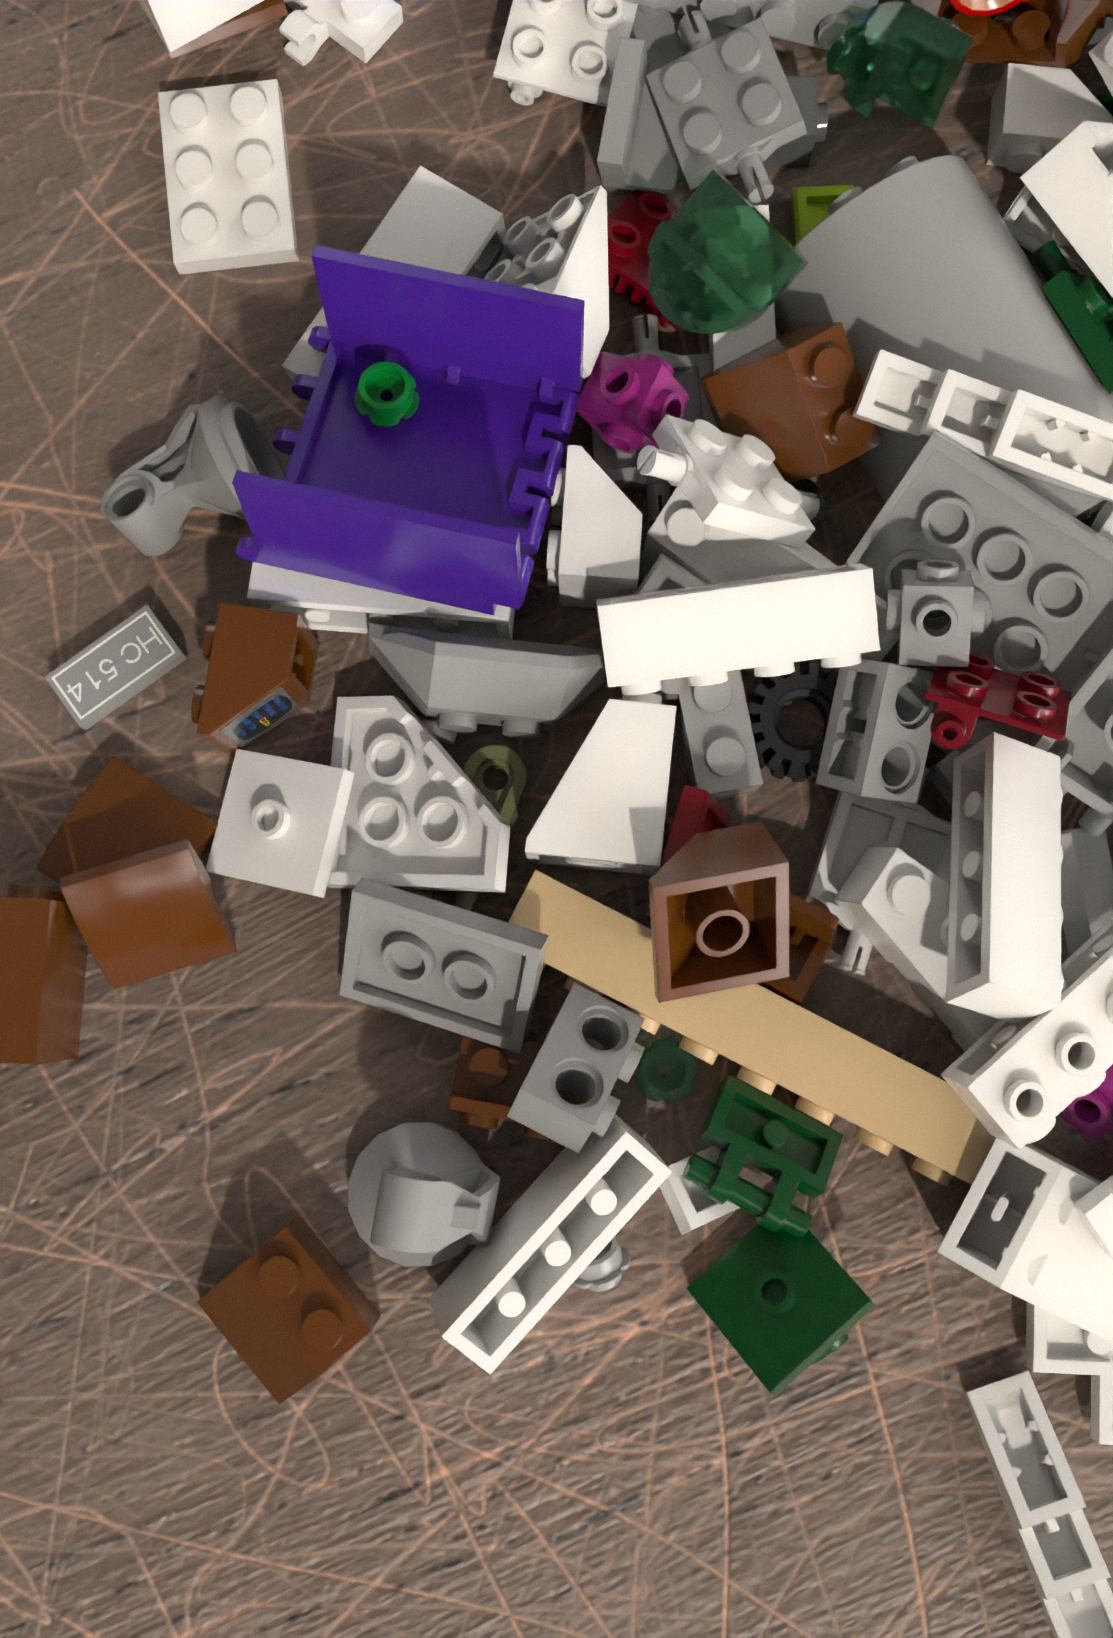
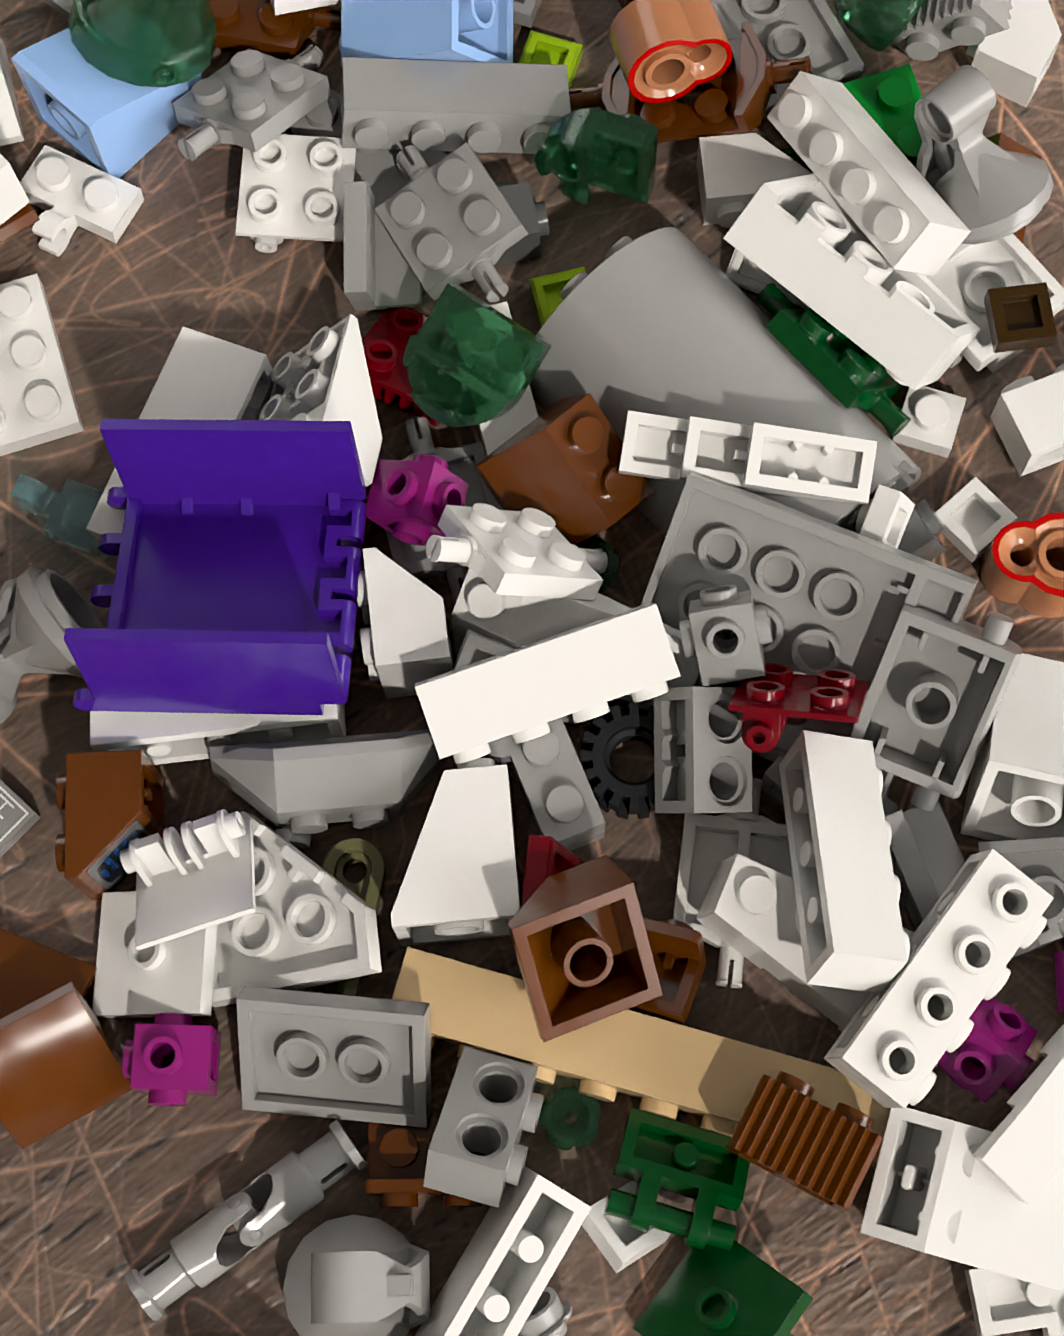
camera: 10 degrees left, 10 degrees down
(265, 342) = (66, 511): none -> clear light blue plate
(282, 1128) = (287, 1192): none -> light grey piece
(300, 938) = (194, 1066): none -> magenta brick
(329, 756) = (192, 878): none -> white hinge
(386, 379) = (186, 522): green plate -> none
(903, 1153) = (805, 1141): none -> reddish brown brick

